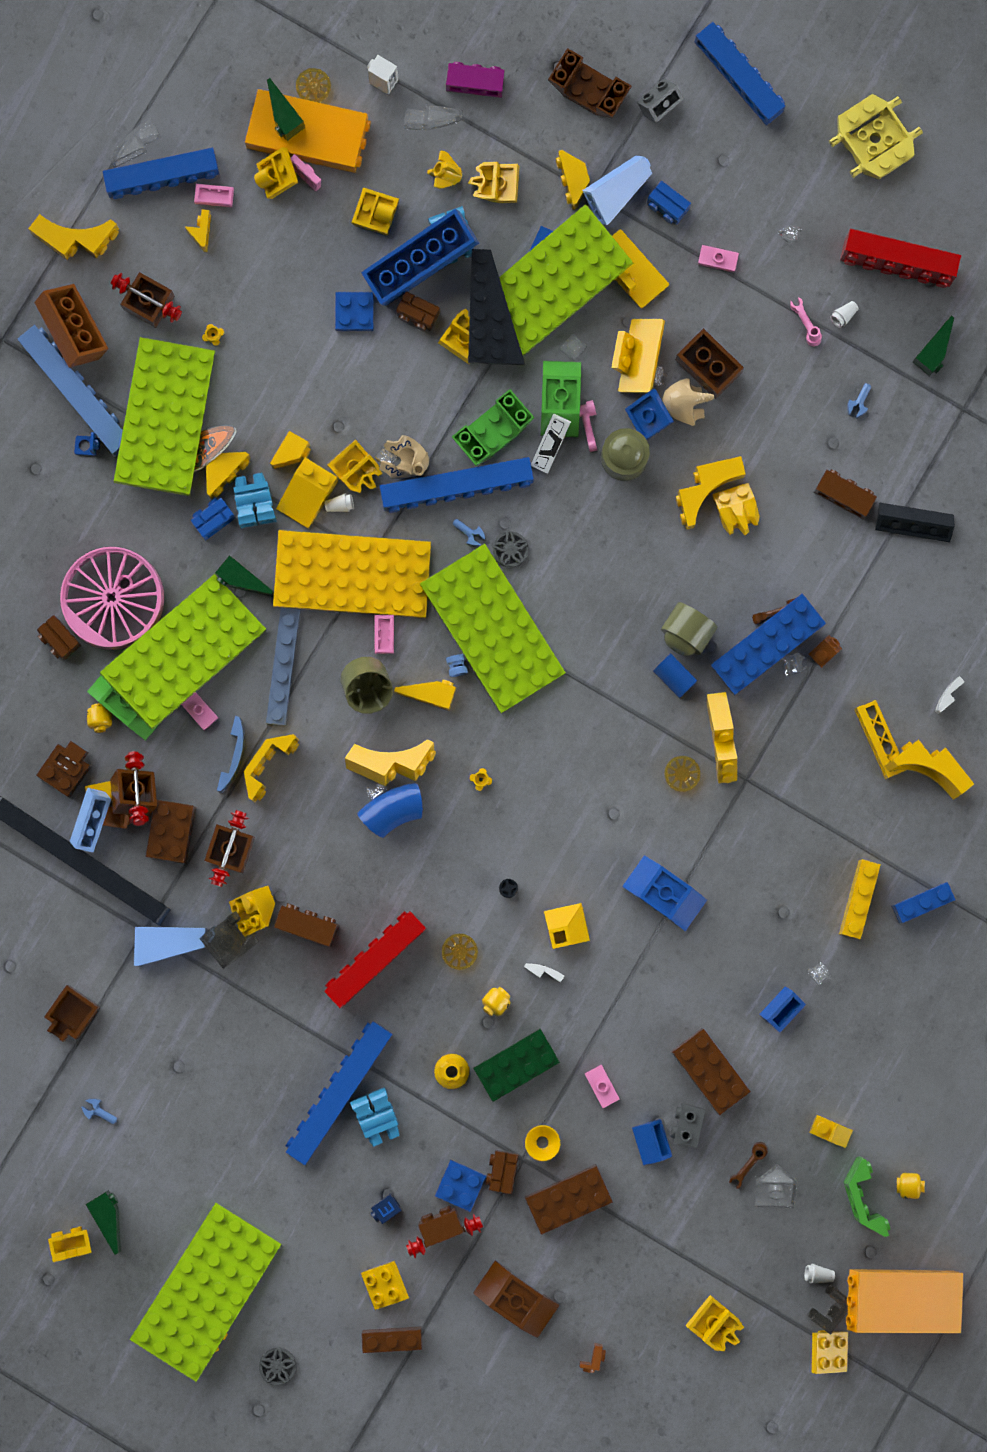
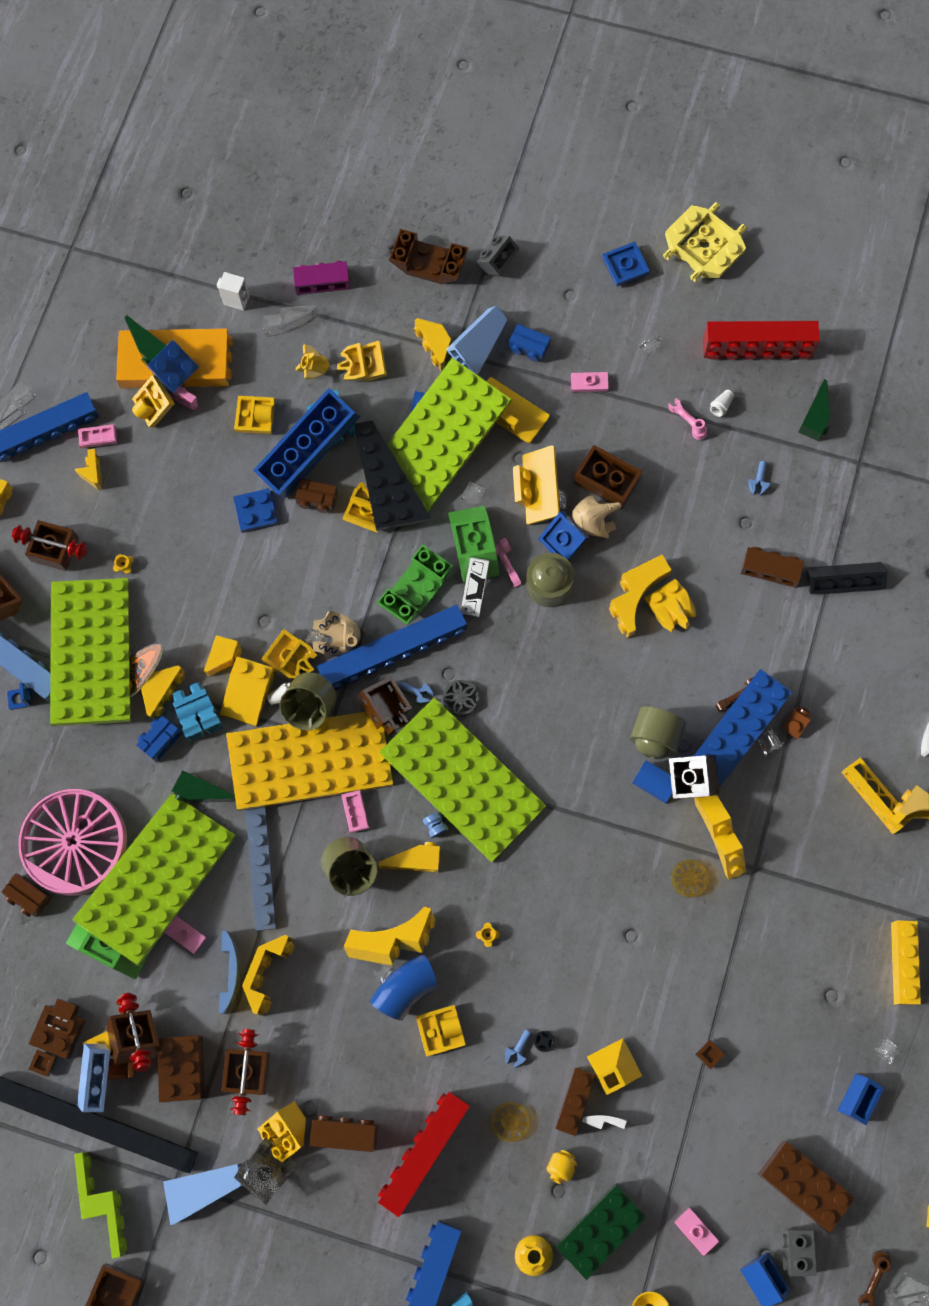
camera: 10 degrees left, 10 degrees down
(45, 795) = (42, 1063): none -> reddish brown plate
(74, 932) = (100, 1204): none -> lime bracket
(99, 718) = (83, 968): yellow head -> none
(304, 143) = (172, 366): none -> blue plate
(313, 85) = (171, 317): clear yellow wheel -> none
(363, 518) = (307, 701): none -> olive piece
(415, 855) = (440, 1030): none -> yellow plate
(436, 539) = (385, 705): none -> reddish brown piece
(483, 889) = (518, 1049): none -> medium blue bar
(522, 948) = (574, 1101): none -> reddish brown brick
(656, 936) = (709, 1054): none -> reddish brown plate
(665, 892) = (706, 1005): blue slope -> none
(710, 680) = (694, 776): none -> brick
(740, 73) = (565, 216): blue brick -> none
(788, 141) = (625, 264): none -> blue plate

